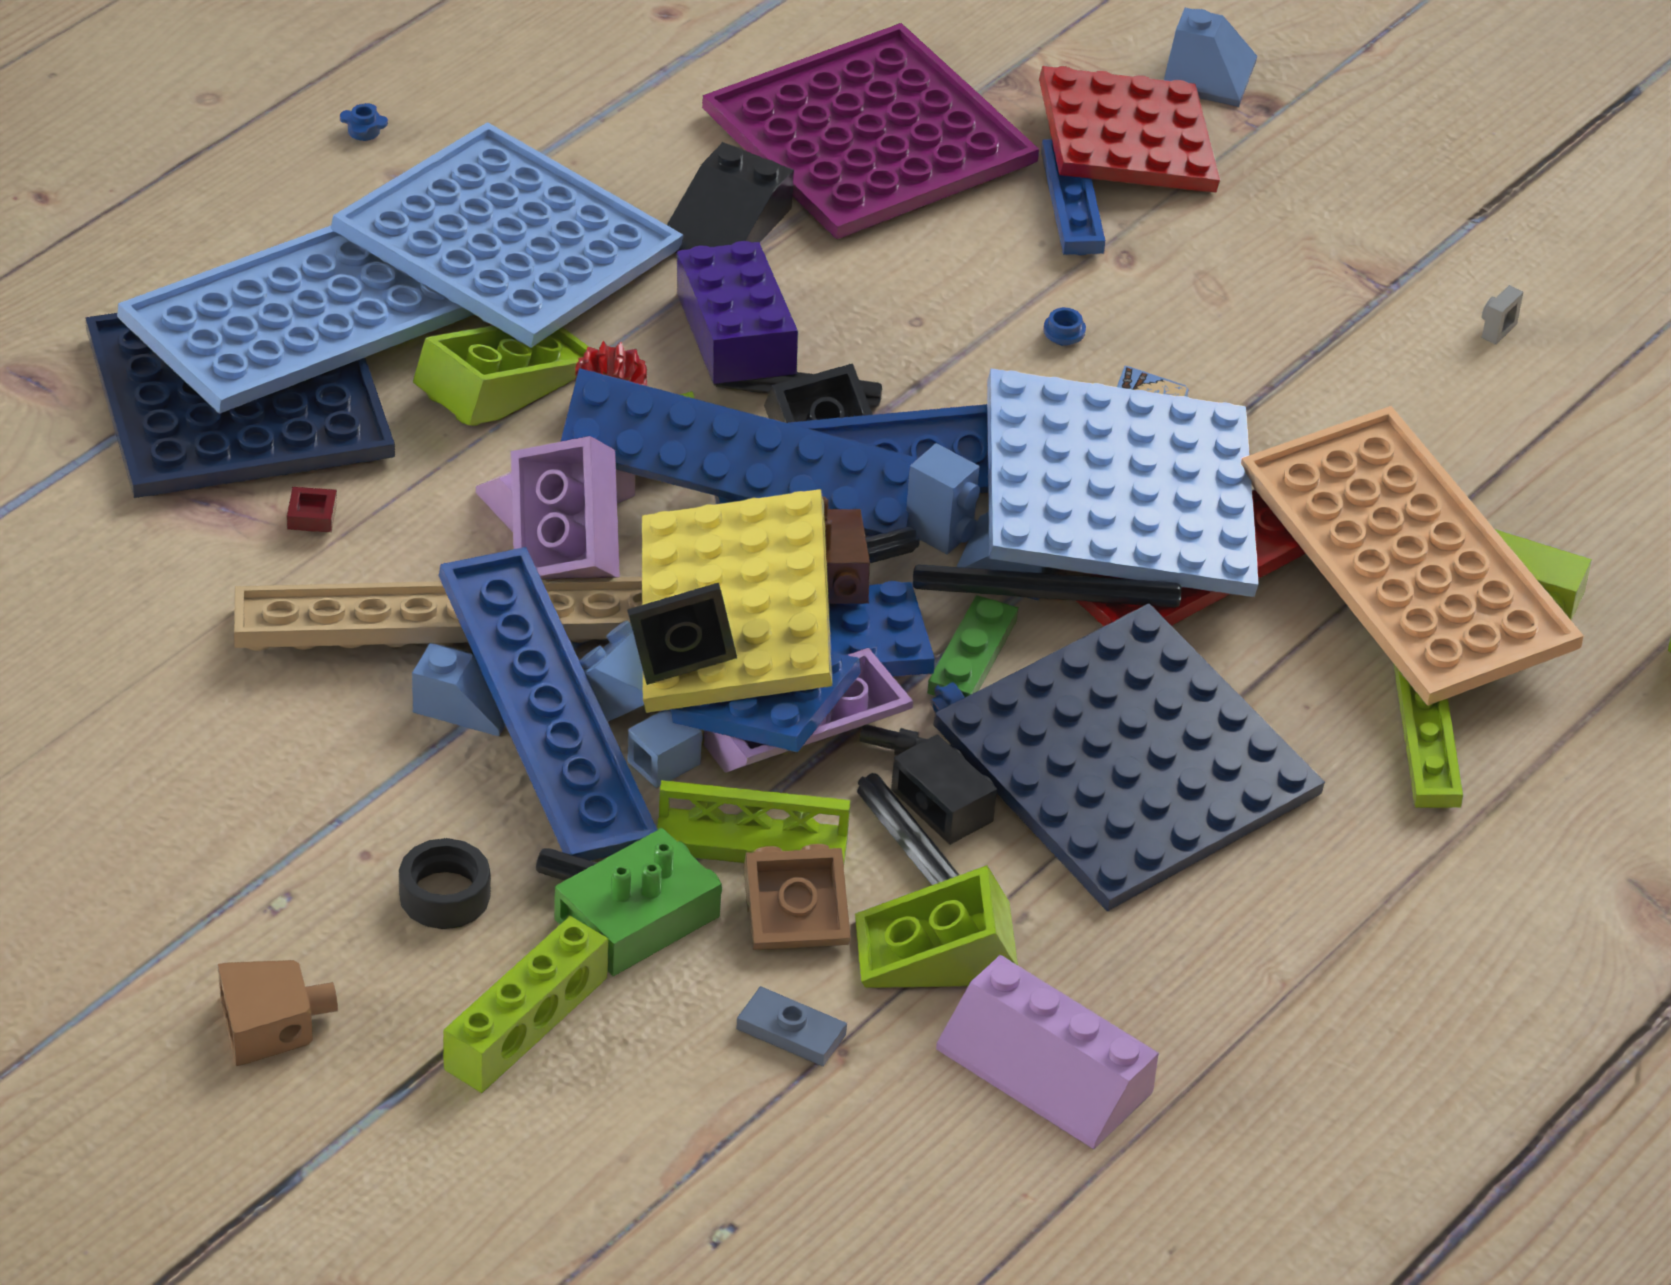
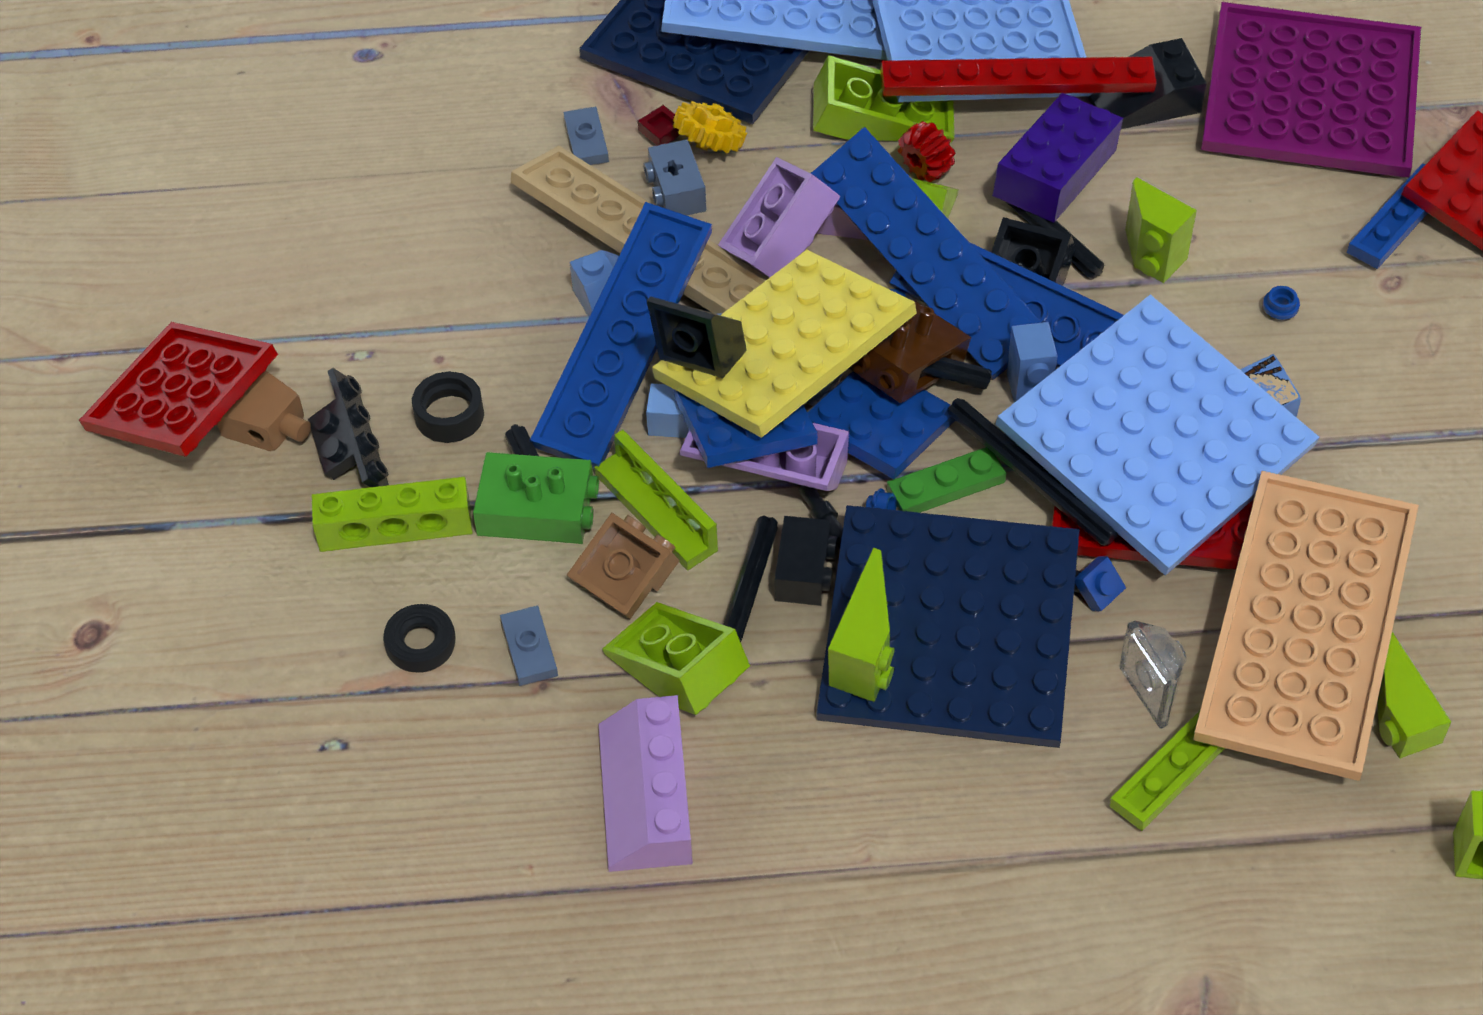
camera: 50 degrees right, 10 degrees up
(161, 1038) = (178, 388): none -> red plate
(240, 563) = (586, 135): none -> sand blue plate
(371, 477) = (709, 127): none -> yellow gear
(378, 978) = (345, 435): none -> black bracket
(395, 544) = (675, 178): none -> sand blue brick
(622, 258) = (1017, 76): none -> red plate
(682, 1114) = (419, 659): none -> black tyre
(901, 322) = (1158, 230): none -> lime slope
(1103, 786) = (861, 645): none -> lime slope
(1206, 639) = (1099, 583): none -> blue plate
(1339, 678) = (1153, 667): none -> clear slope

